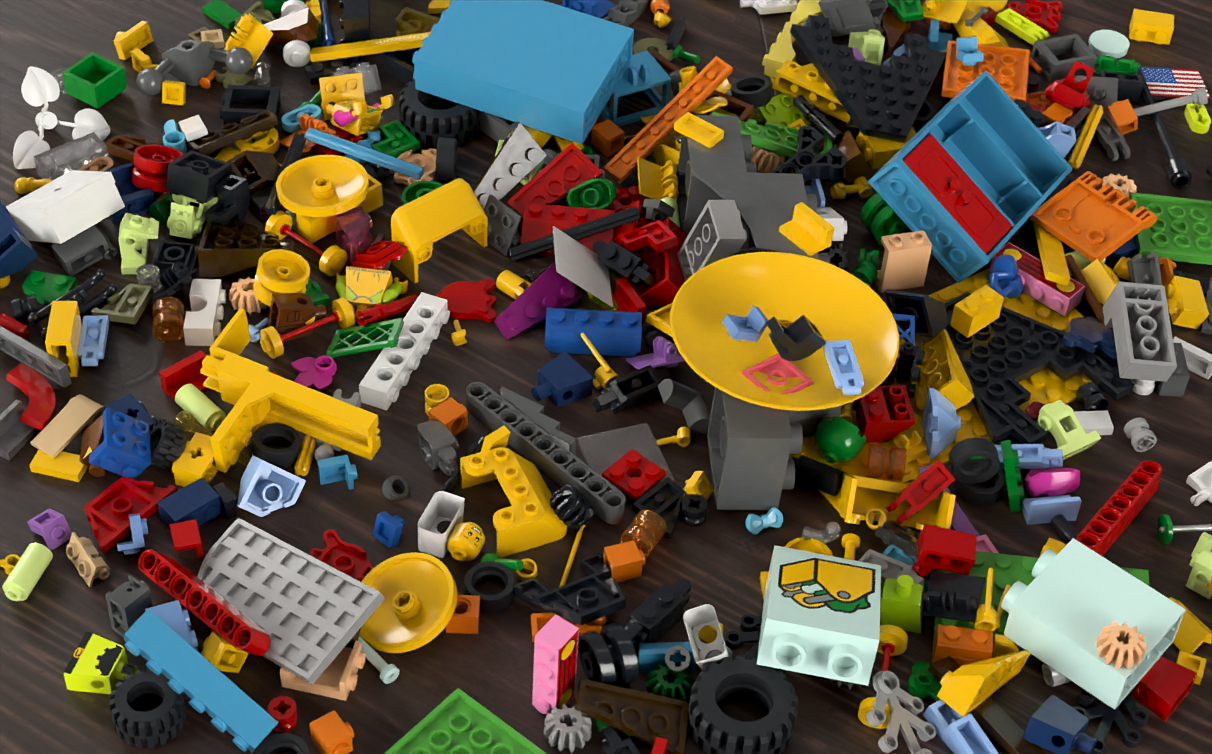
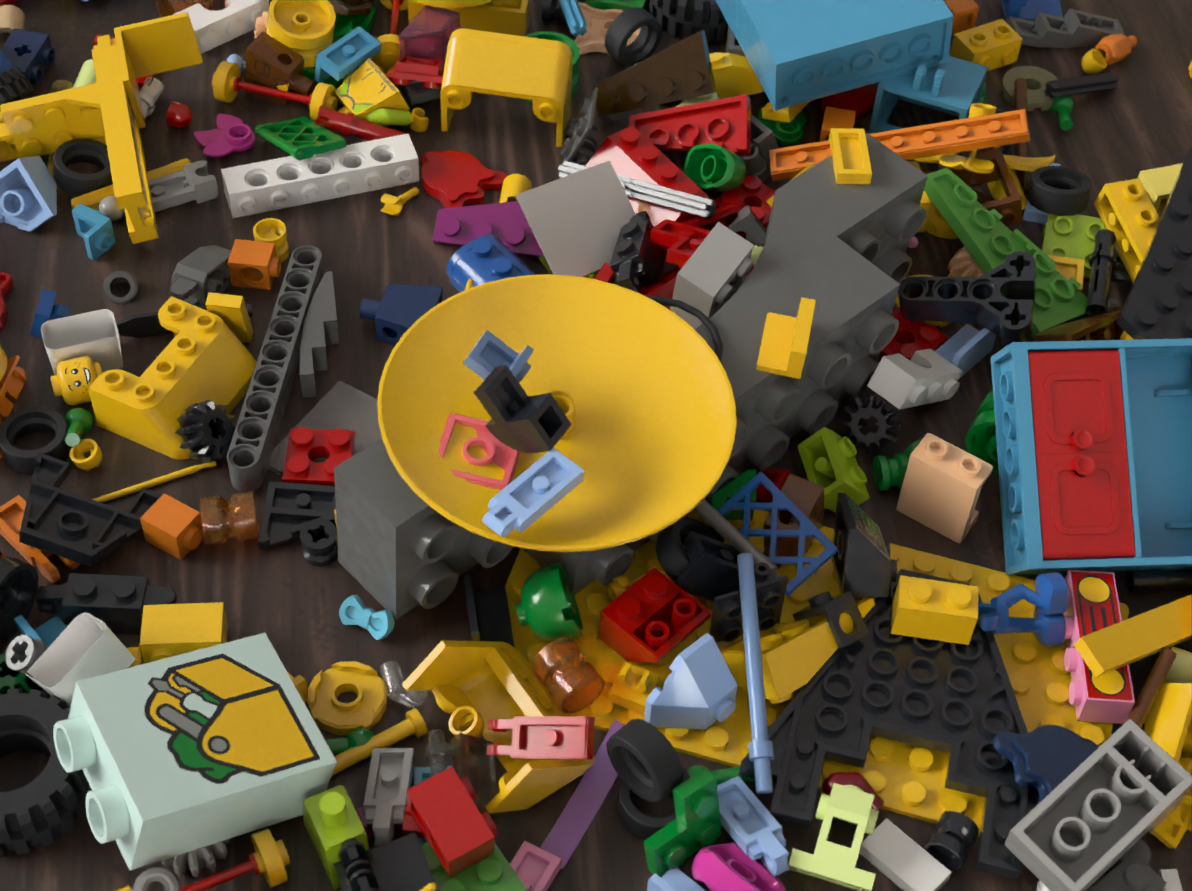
camera: 50 degrees right, 5 degrees up
(328, 275) = (346, 55): none -> dark azure panel
(714, 588) = (181, 629): none -> yellow brick
(936, 344) = (832, 609): none -> black bracket
(998, 421) = (760, 748): none -> medium blue bar

